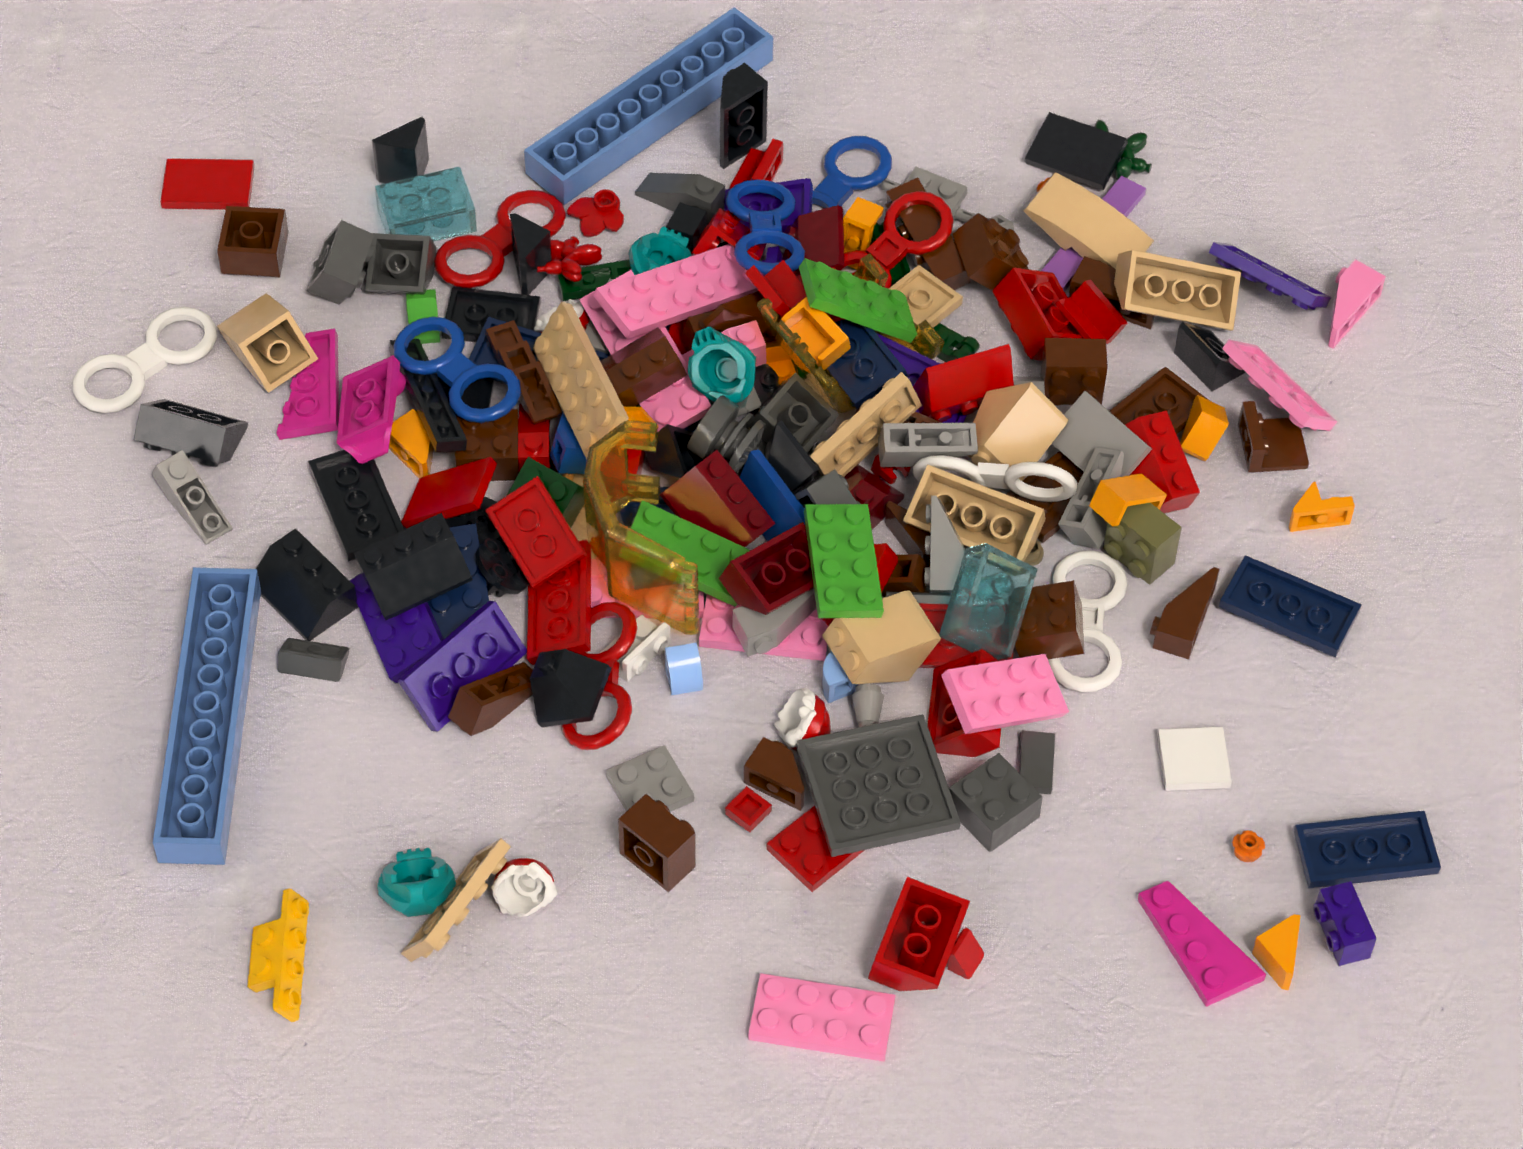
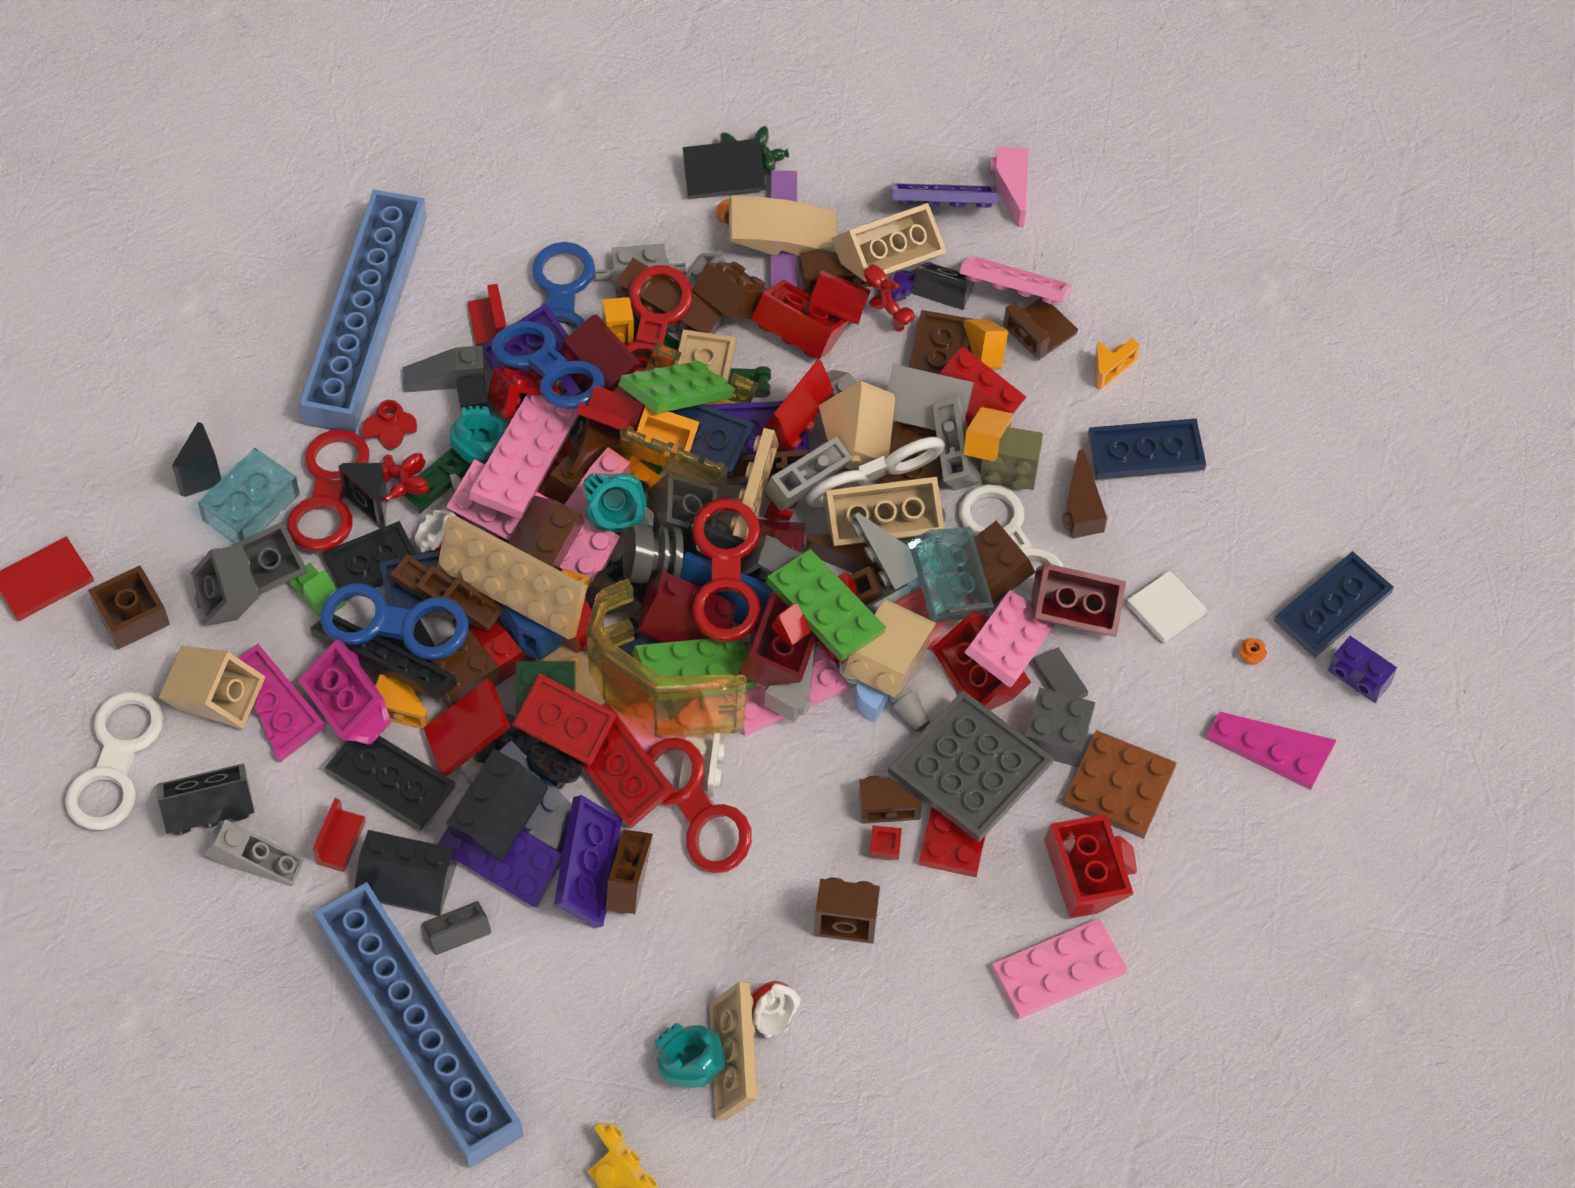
camera: 35 degrees left, 5 degrees up
(270, 522) = (338, 837): none -> red panel
(567, 687) = (682, 830): black slope -> none
(653, 775) = (796, 868): light grey plate -> none
(683, 668) = (753, 761): light blue brick -> none
(742, 113) = (450, 277): black slope -> none
(776, 480) = (726, 570): none -> red bar
(794, 558) = (791, 625): none -> slope
(803, 718) = (874, 747): white hair -> none
(1016, 889) = (1120, 782): none -> dark orange plate
(1072, 368) = (864, 349): reddish brown brick -> none
(1102, 697) = (1077, 599): none -> dark red slope
(1133, 312) = (878, 279): none -> red piece
(1161, 334) = (905, 280): none -> dark purple plate
(1277, 950) = (1335, 717): light orange slope -> none

